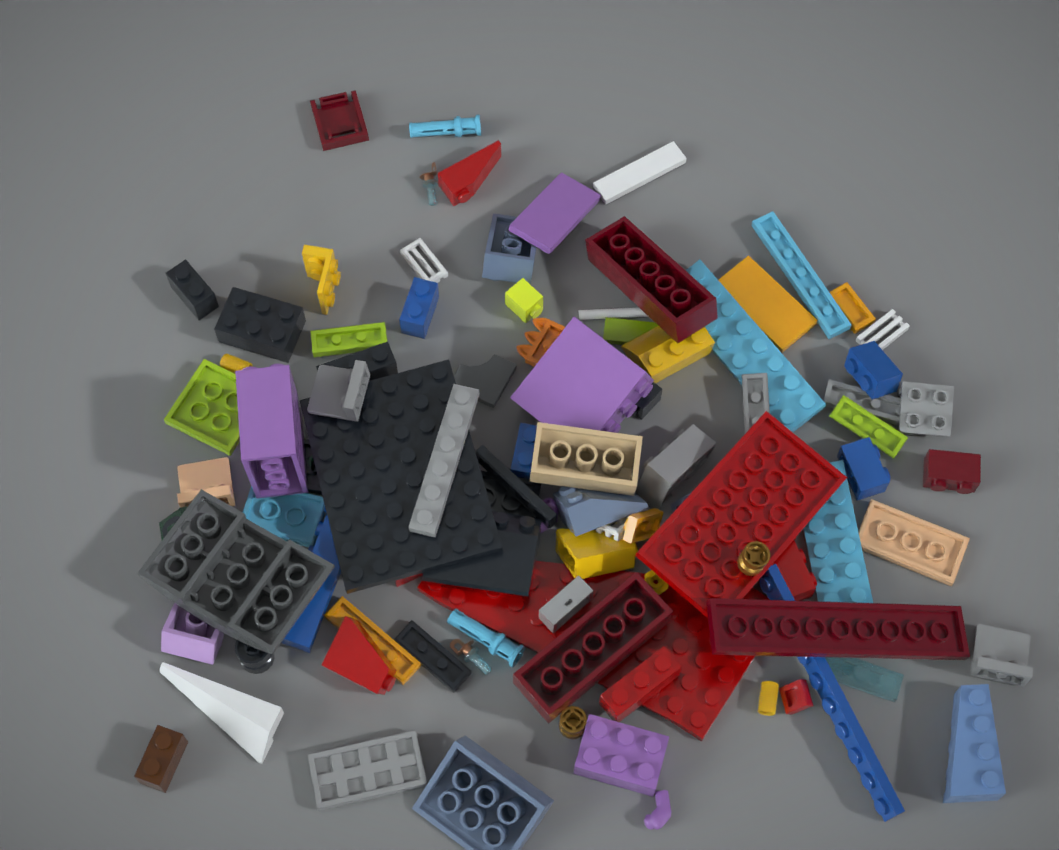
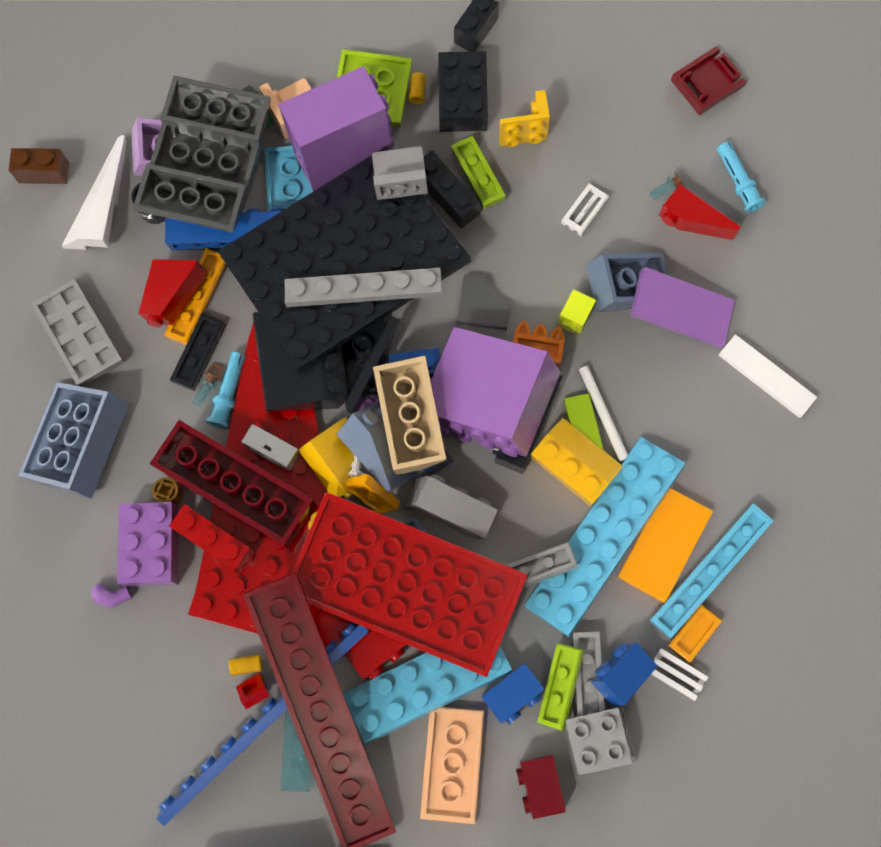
camera: 75 degrees right, 10 degrees up
(419, 308) = (531, 220): blue brick -> none
(651, 279) = (636, 420): dark red brick -> none
(757, 553) = (352, 607): pearl gold wheel -> none

